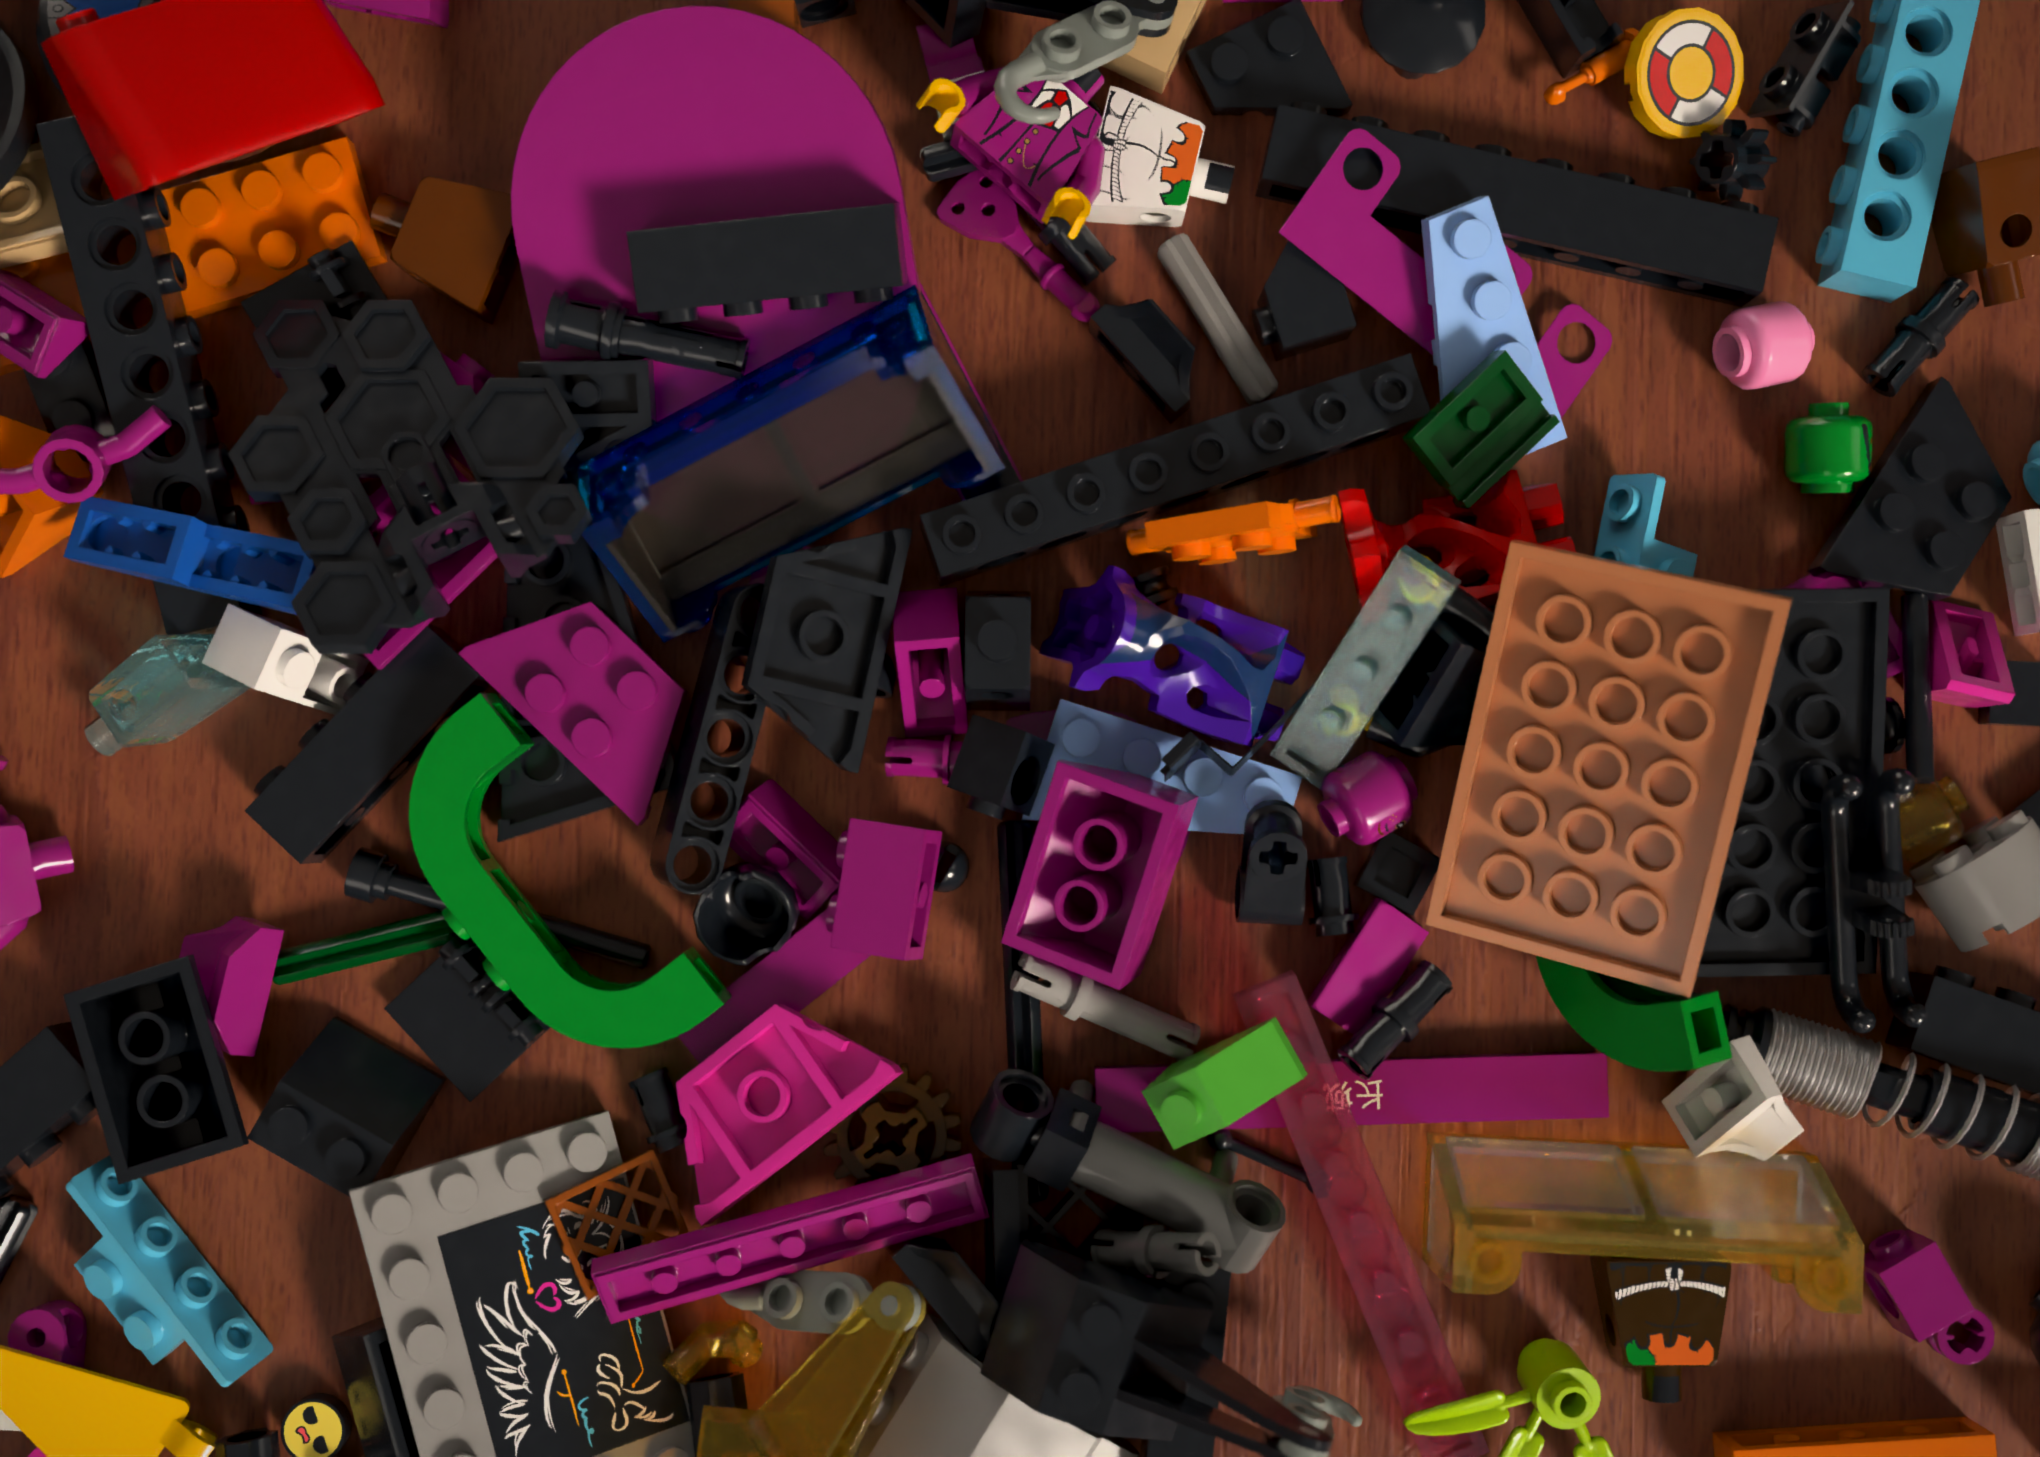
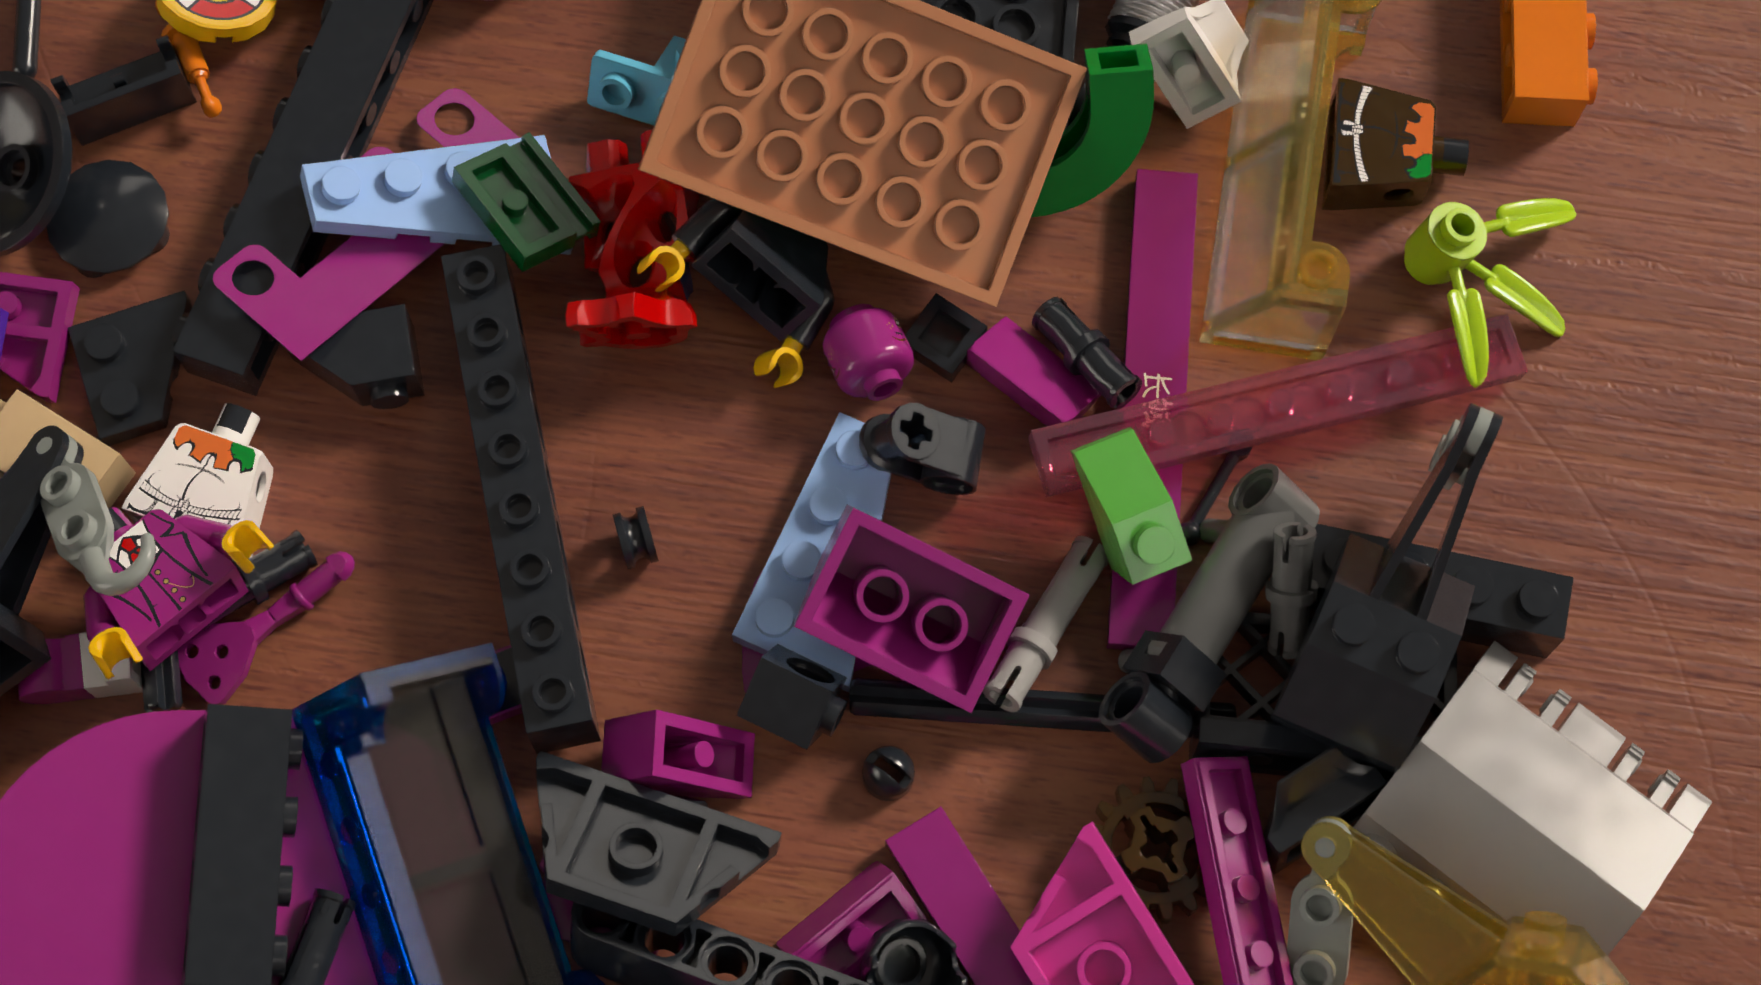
camera: 85 degrees left, 15 degrees down
(883, 889) = (902, 822): magenta brick -> none
(923, 758) = (775, 772): magenta pin -> none
(997, 650) = (675, 679): black torso -> none
(1118, 631) = (675, 549): dark purple hips -> none
(1149, 352) = (397, 504): black slope -> none
(1190, 744) = (792, 503): black piece -> none
(1217, 319) = (373, 442): light grey axle -> none
(1219, 533) = (590, 461): orange plate -> none
(1331, 897) = (963, 398): black pin -> none
(1365, 665) = (741, 331): clear light blue tile -> none

